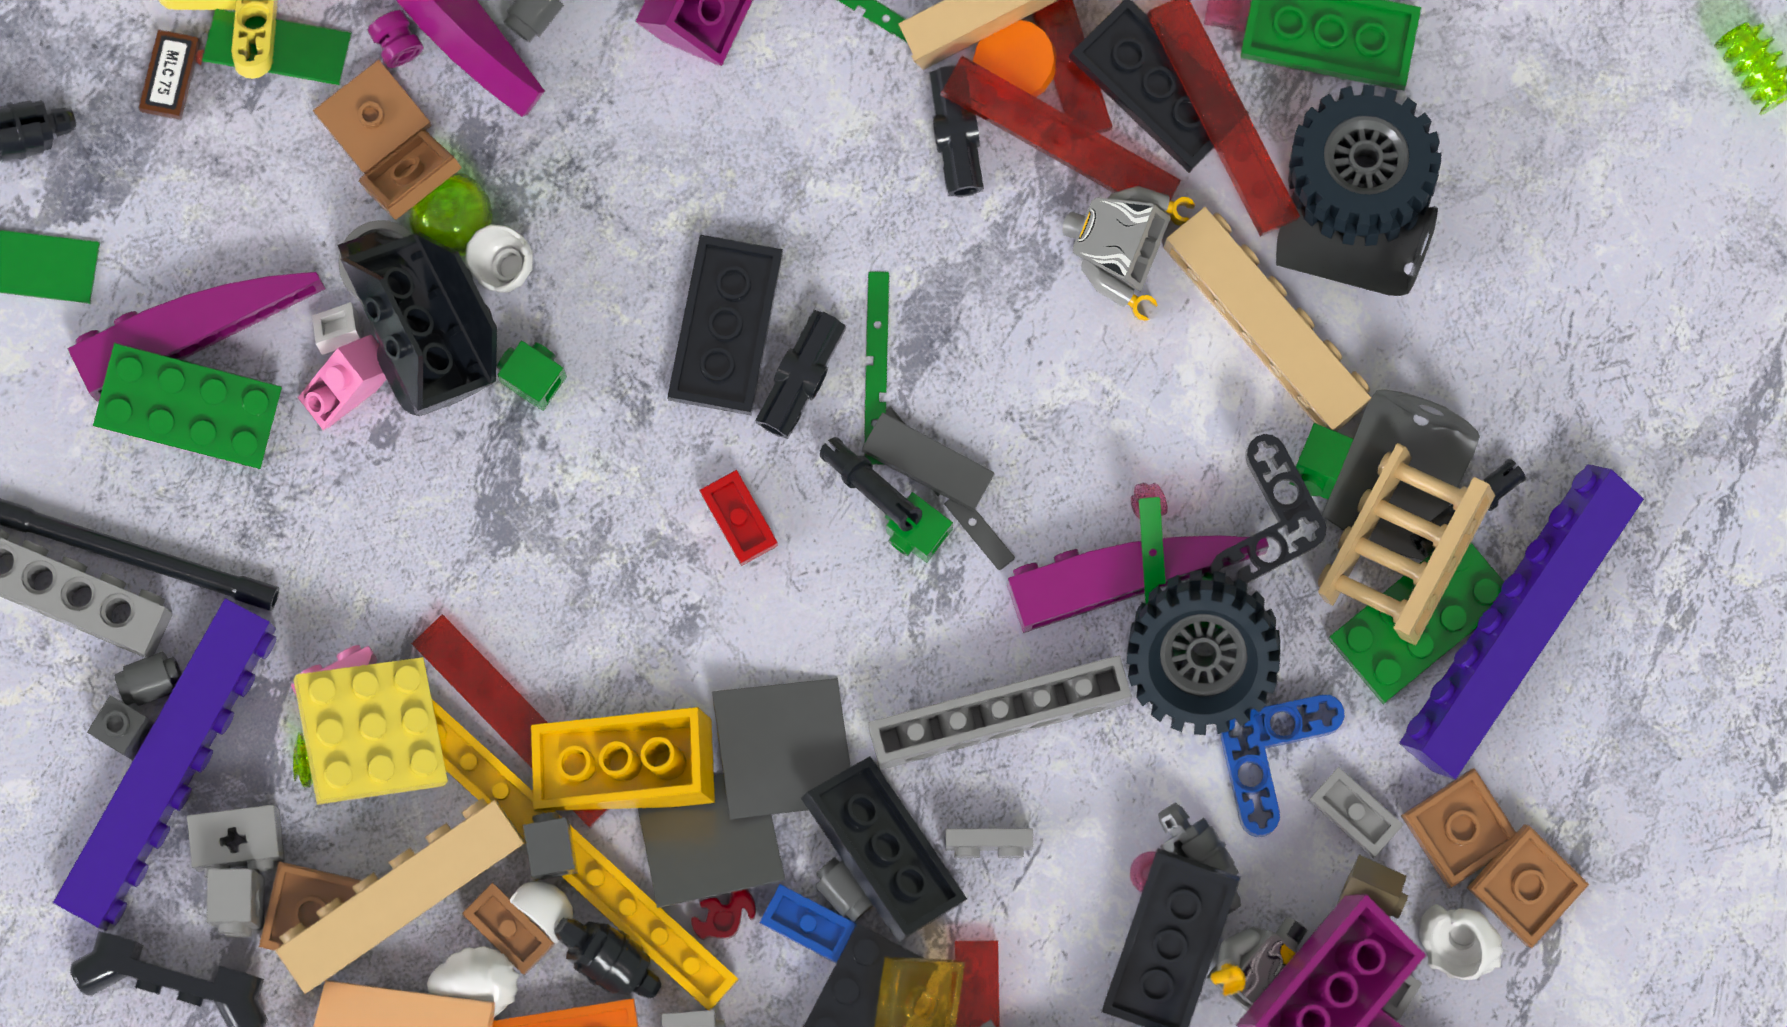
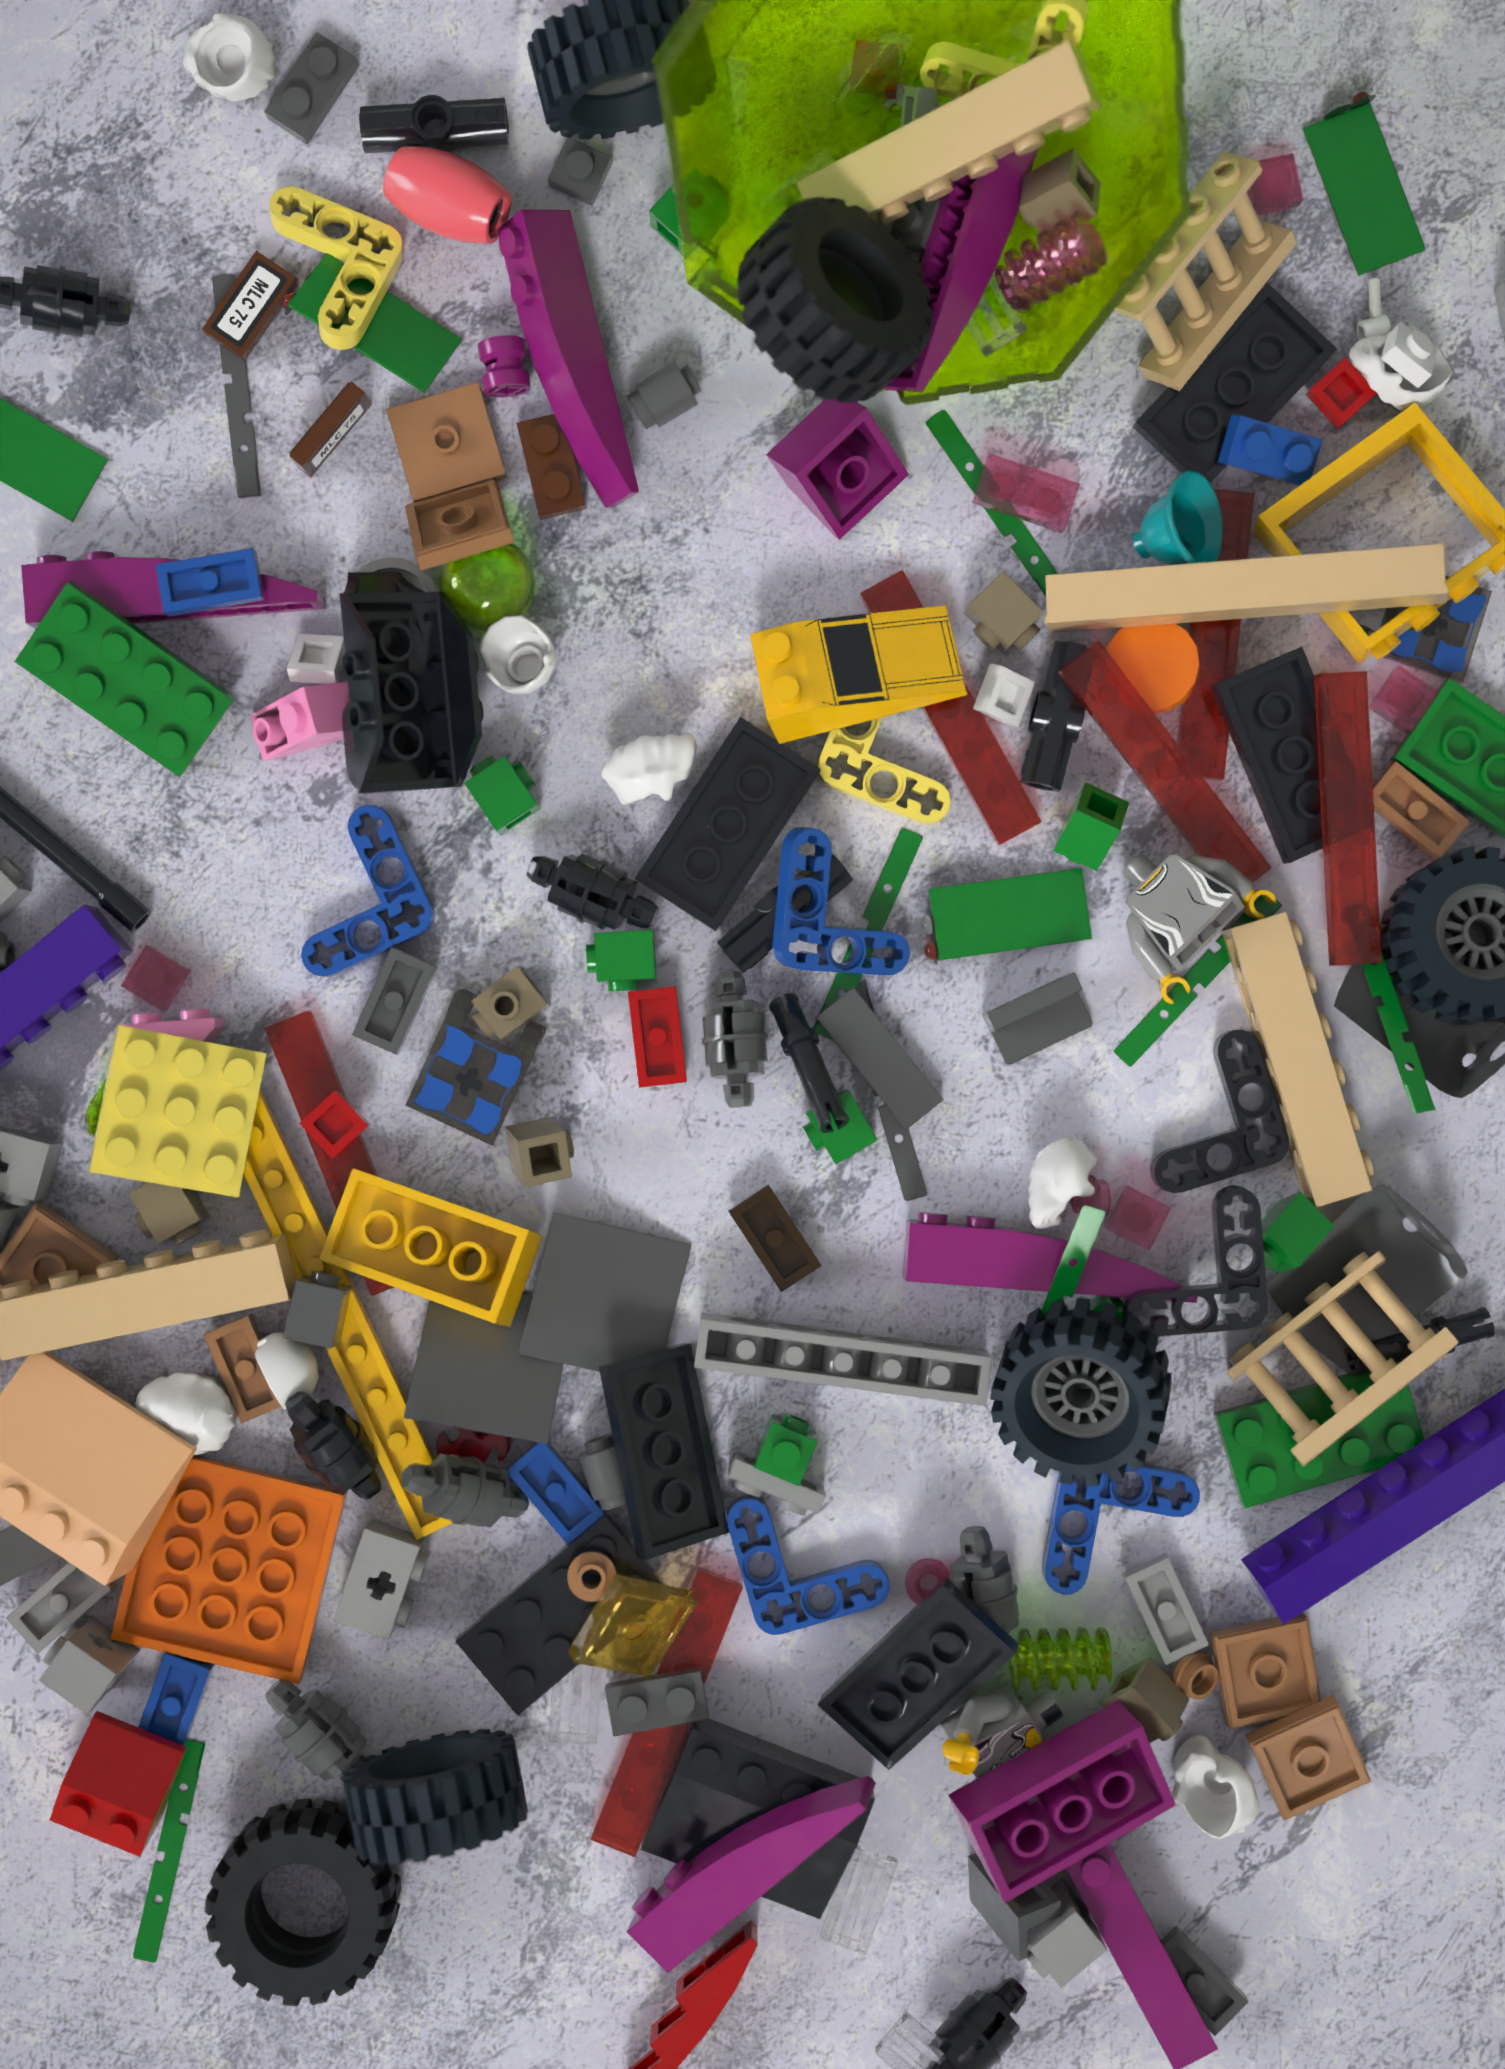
camera: 25 degrees right, 10 degrees up
(188, 156) = (238, 404): none -> dark grey piece
(228, 297) = (210, 582): none -> blue plate
(274, 143) = (330, 429): none -> reddish brown tile
(304, 640) = (155, 978): none -> clear pink plate
(391, 823) = (168, 1212): none -> dark tan brick
(464, 103) = (551, 467): none -> reddish brown plate
(474, 496) = (391, 897): none -> blue beam
(502, 693) = (334, 1124): none -> red plate
(510, 577) = (394, 1001): none -> dark grey plate
(598, 615) = (472, 1077): none -> clear smoke flag
(606, 540) = (508, 1004): none -> dark tan brick
(637, 435) = (593, 889): none -> black piece
(642, 301) = (649, 766): none -> white hair
(679, 646) = (539, 1151): none -> dark tan brick
(684, 465) = (622, 958): none -> green brick
(732, 946) = (464, 1490): none -> dark grey piece
(776, 158) = (855, 669): none -> yellow slope
(806, 225) = (857, 749): none -> light yellow beam
(812, 487) = (734, 1039): none -> dark grey piece
(825, 372) = (810, 924): none -> blue beam
(851, 970) = (584, 1562): none -> medium nougat plate
(868, 161) = (966, 737): none -> clear red tile
(879, 69) = (1004, 615): none -> dark tan brick
(903, 641) = (774, 1238): none -> dark brown plate
(906, 132) = (1004, 695): none -> white plate
(983, 305) = (1006, 915): none -> green piece
(984, 804) = (786, 1448): none -> green brick
(1020, 205) = (1091, 826): none -> green brick
(1027, 926) = (778, 1585): none -> blue beam
(1043, 376) = (1038, 1019): none -> dark grey panel
(1109, 494) = (1057, 1177): none -> white hair
(1163, 287) = (1202, 972): none -> green piece
(1193, 502) = (1137, 1217): none -> clear pink plate
(1249, 407) = (1241, 1138): none -> black beam
(1277, 87) = (1417, 811): none -> medium nougat plate
(1285, 886) = (1061, 1658): none -> clear neon green piece
(1331, 261) = (1394, 1025): none -> green piece
(1404, 855) = (1196, 1675): none -> medium nougat plate

